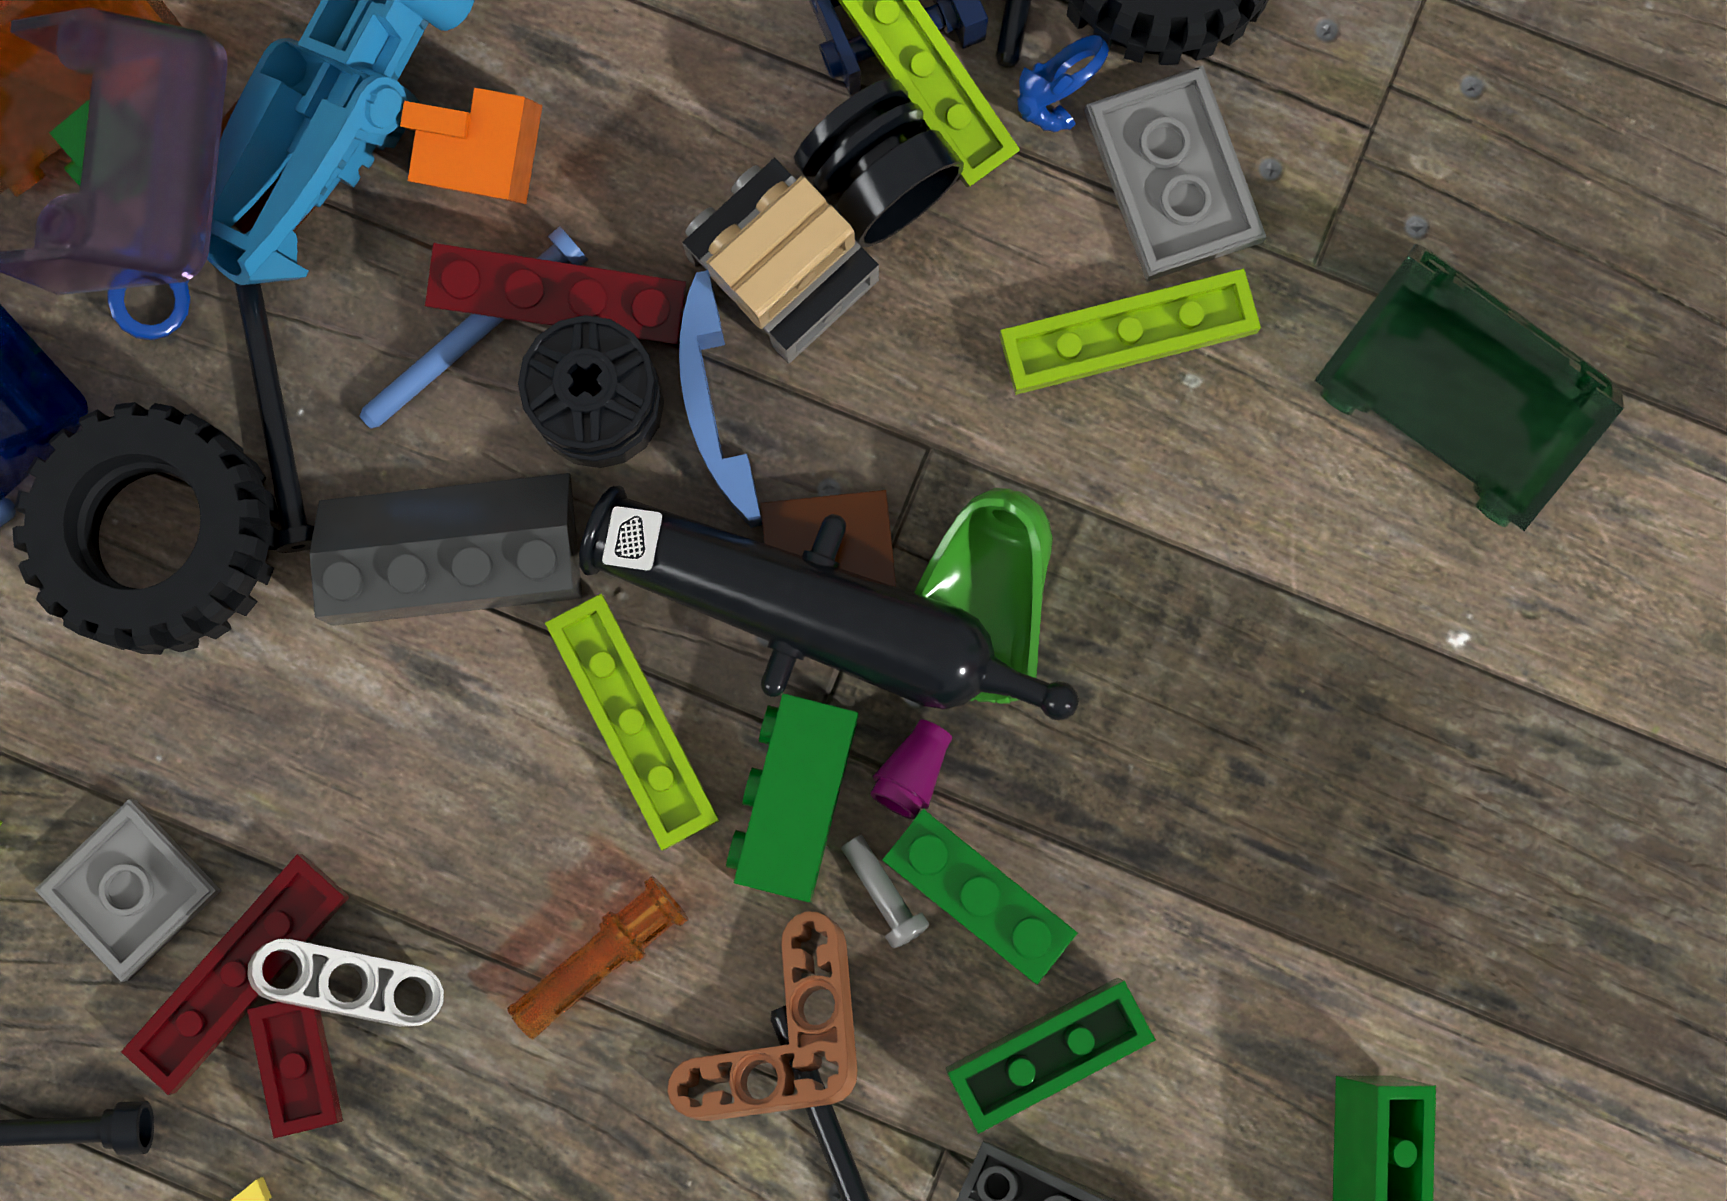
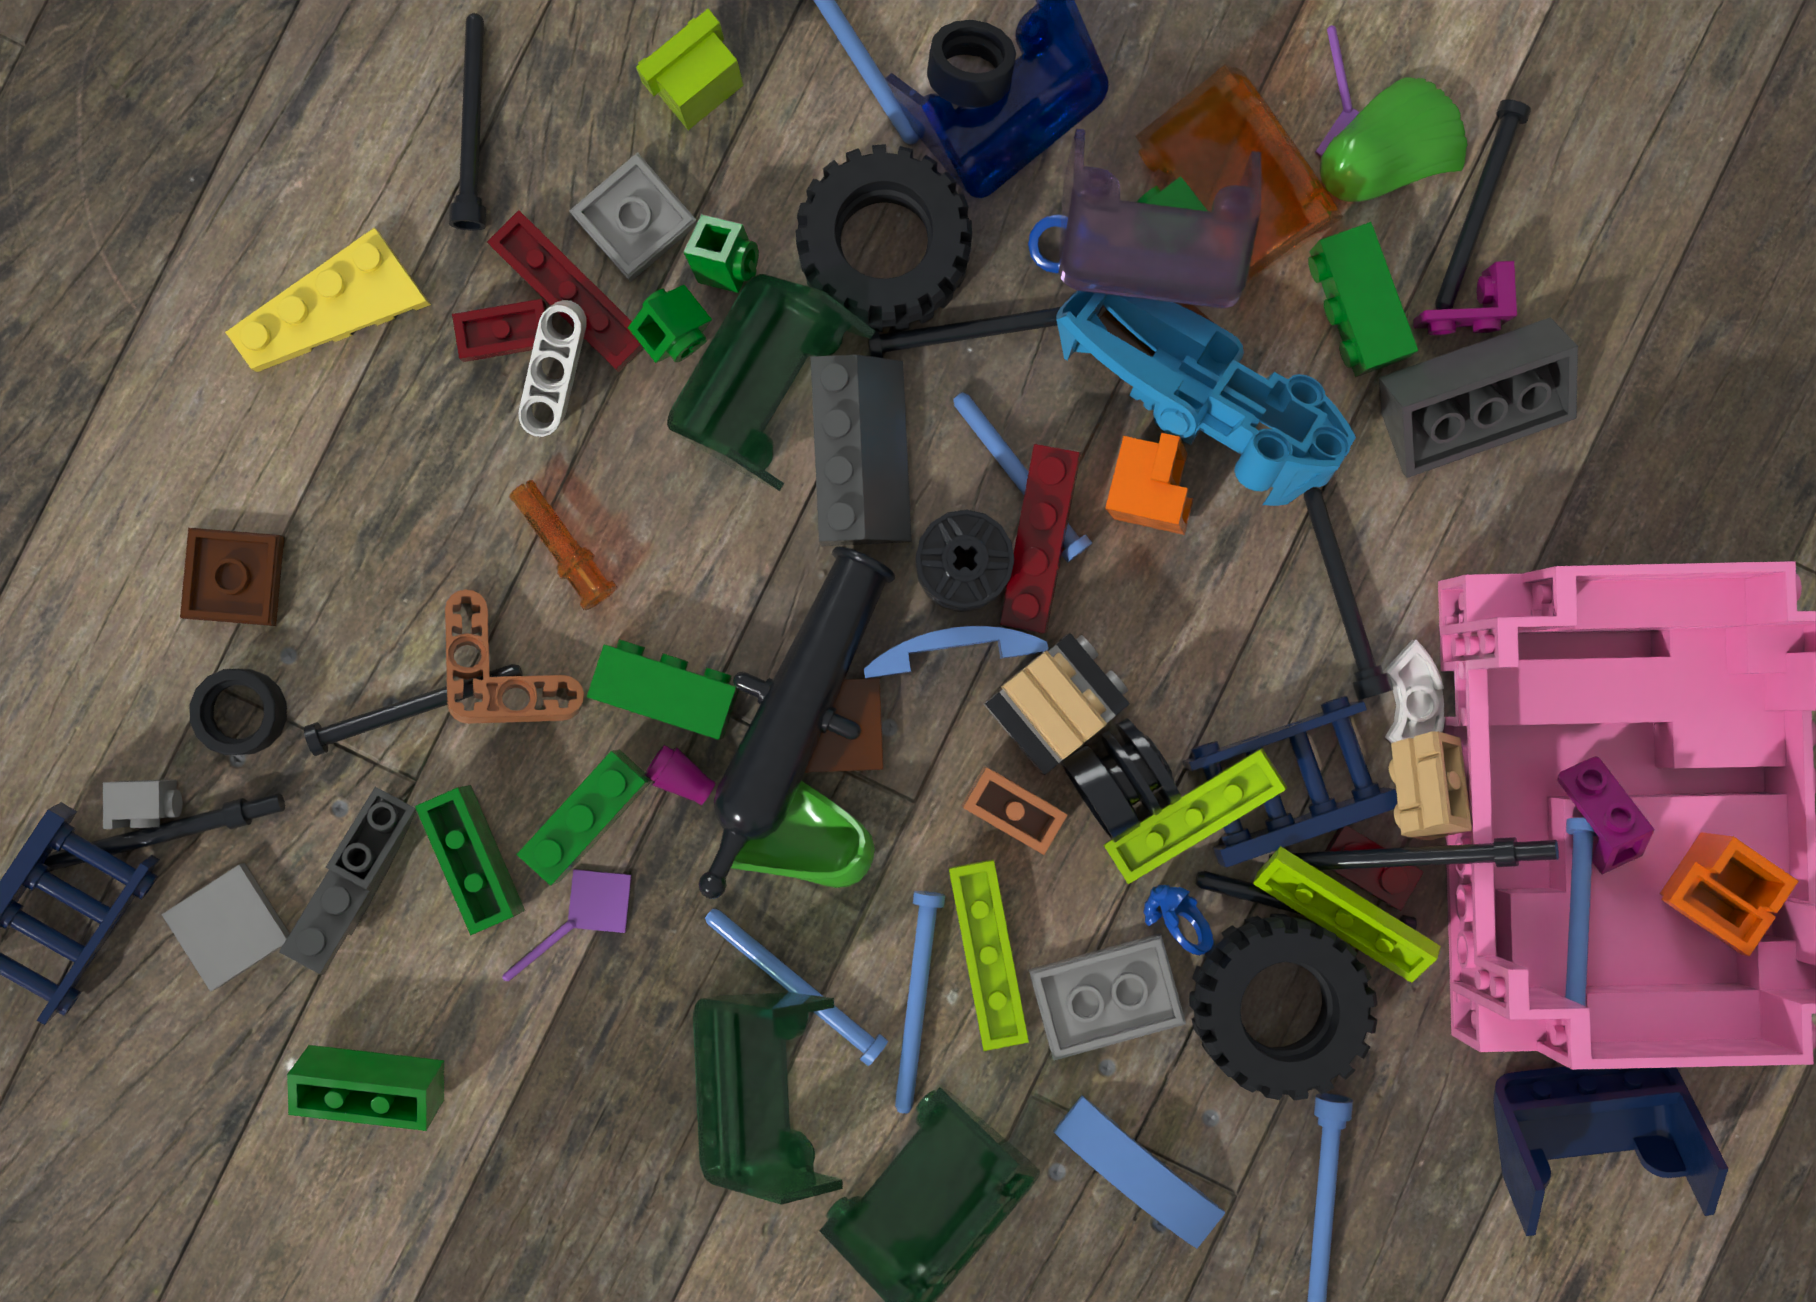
camera: 85 degrees right, 5 degrees up
(175, 755) = (721, 254): none -> green brick
(277, 820) = (670, 324): none -> green brick
(329, 705) = (752, 368): none -> clear green windscreen
(632, 538) = (850, 585): white sticker -> none
(632, 722) = (726, 578): lime plate -> none
(903, 924) = (596, 748): light grey piece -> none
(928, 304) = (1014, 810): none -> nougat brick
(1100, 879) = (596, 903): none -> medium lavender piece
(1195, 425) = (928, 905): none -> medium blue bar
(1268, 483) = (787, 978): none -> medium blue bar
(1352, 650) = (746, 1099): none -> clear green windscreen
(1405, 118) = (1138, 1173): none -> medium blue slope

